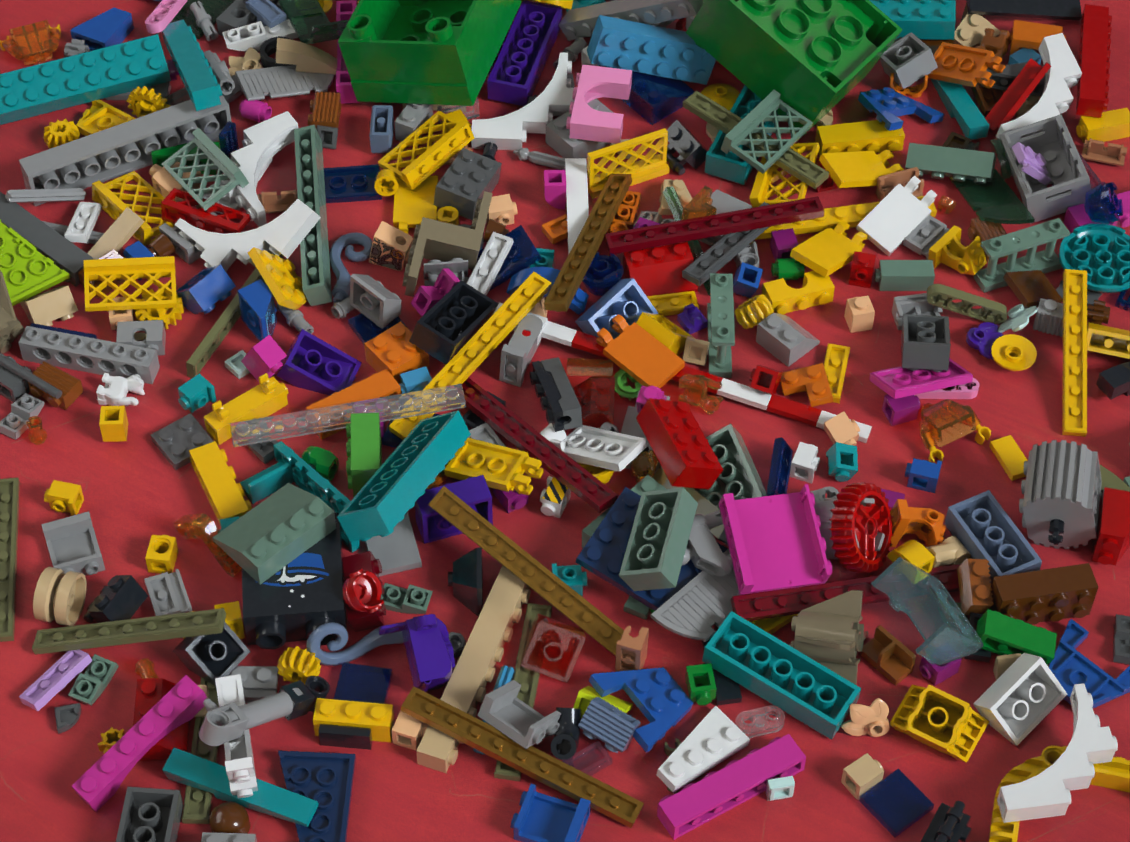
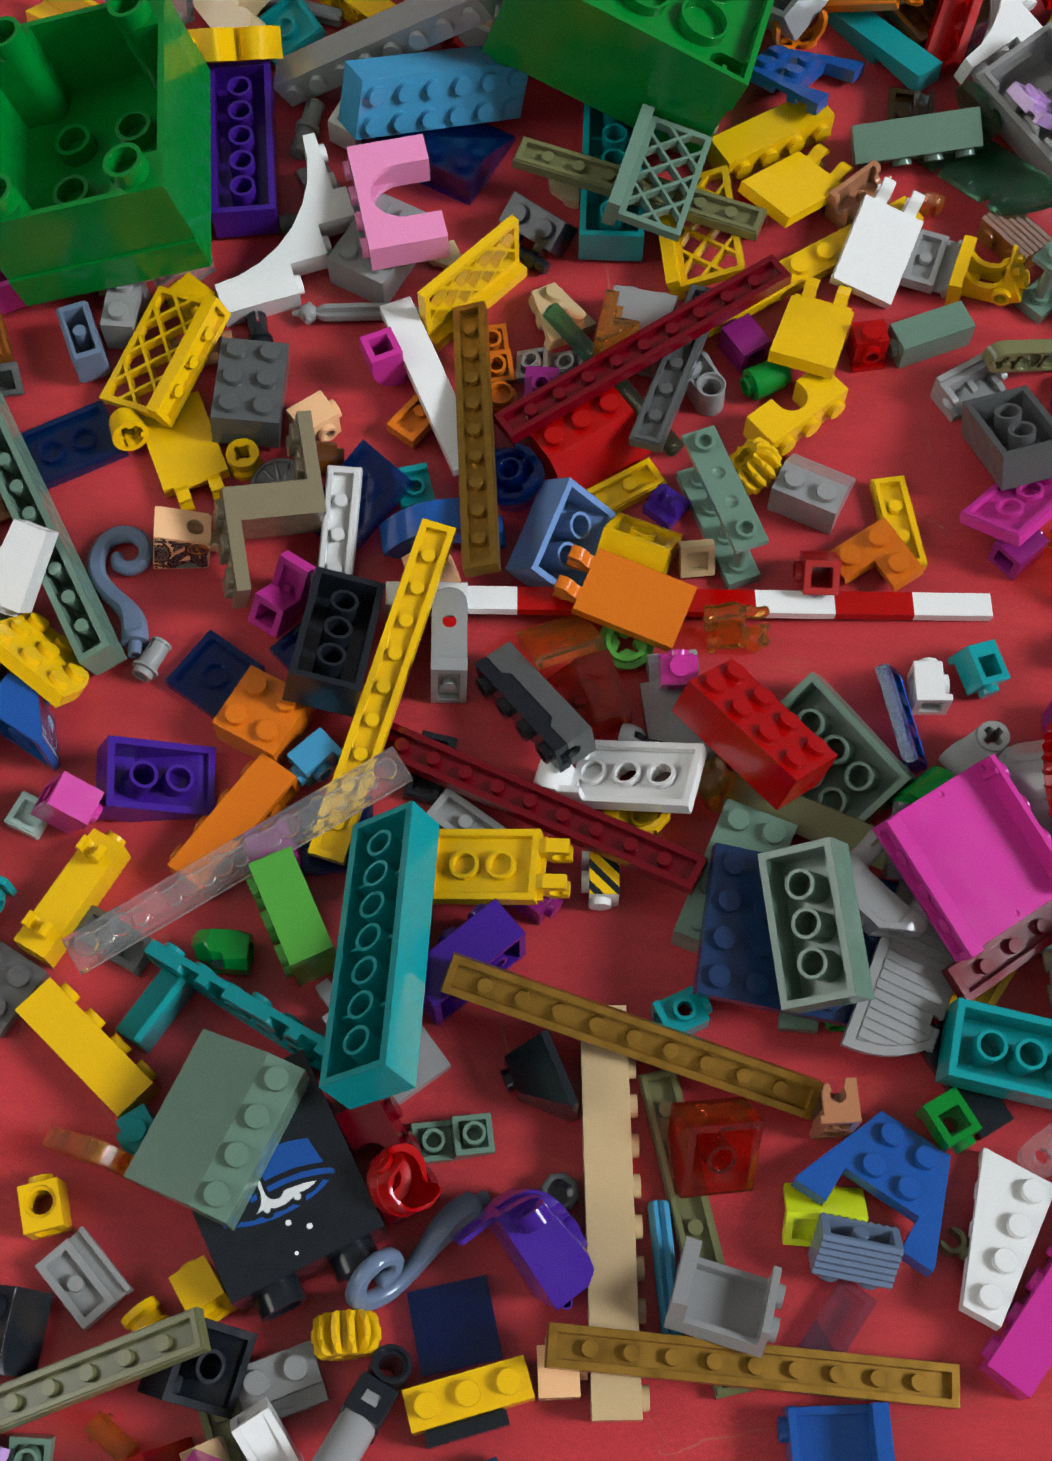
camera: 20 degrees left, 15 degrees up
(295, 319) = (88, 710): light grey pin -> none
(374, 300) = (195, 640): light grey slope -> none
(434, 267) = (264, 555): light grey hinge -> none
(567, 736) = (801, 1304): black cylinder -> none
(721, 94) = (549, 126): yellow dish -> none
(746, 280) = (723, 413): blue brick -> none
(842, 430) = (961, 620): light nougat brick -> none
(859, 314) = (896, 418): light nougat brick -> none

